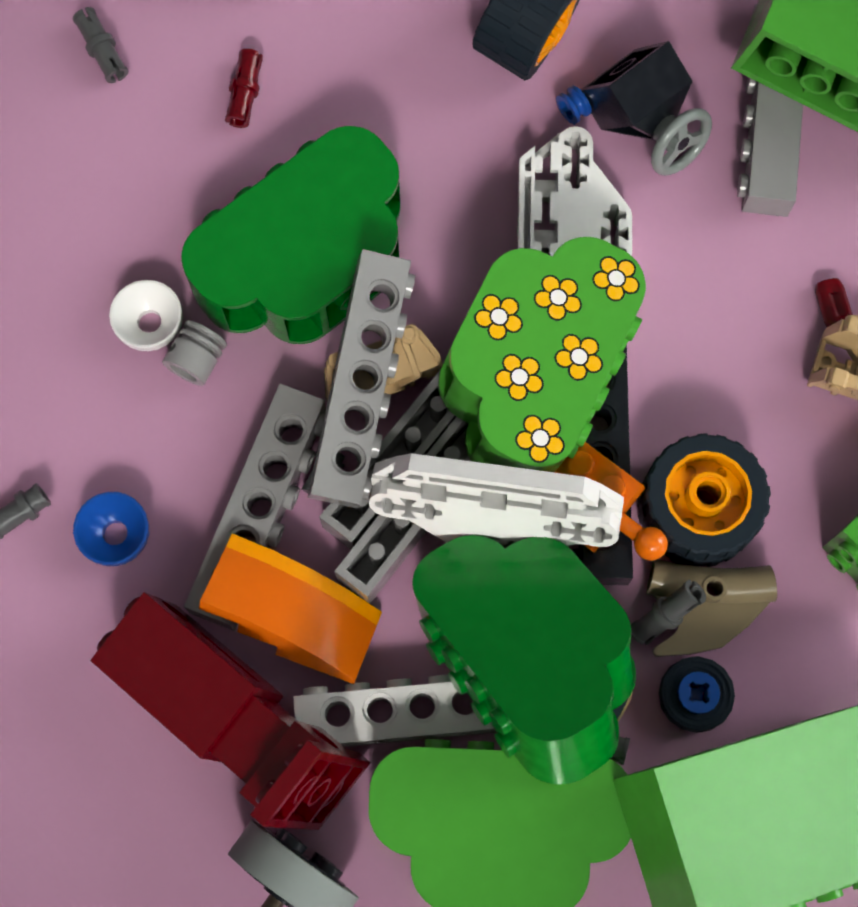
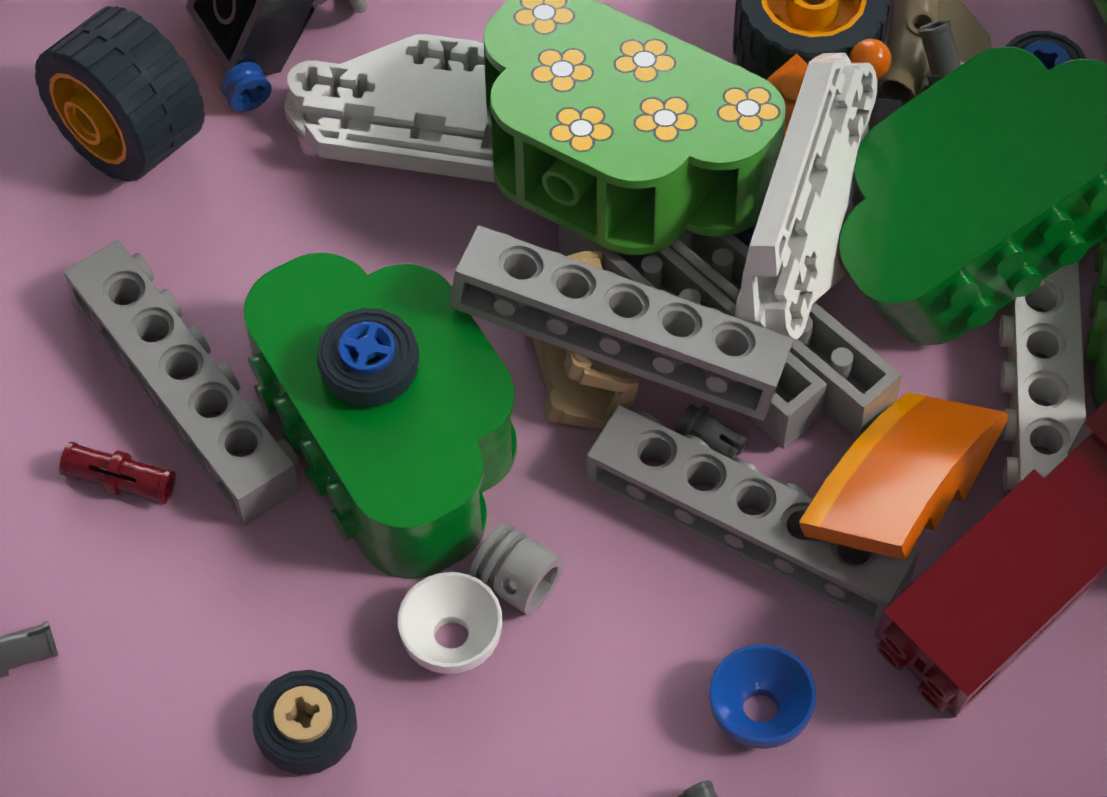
camera: 80 degrees left, 15 degrees down
(78, 251) = (310, 742): none -> black wheel
(300, 196) = (355, 340): none -> black wheel
(377, 43) = (246, 483): none -> light grey brick

